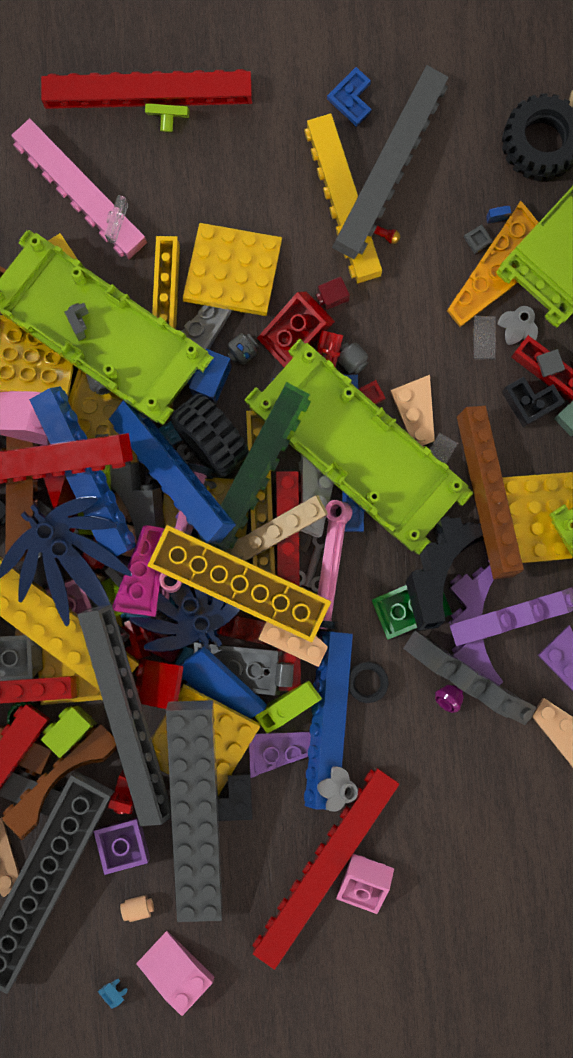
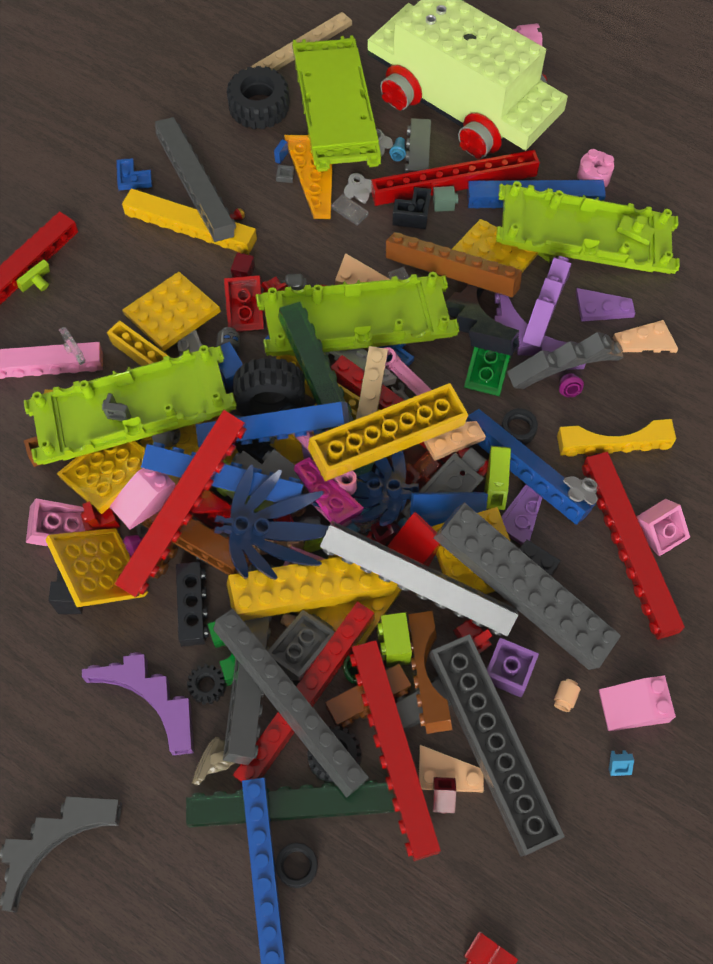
camera: 55 degrees left, 20 degrees down
(457, 812) = (577, 440): none -> yellow arch
(550, 363) = (400, 178): dark grey tile -> none

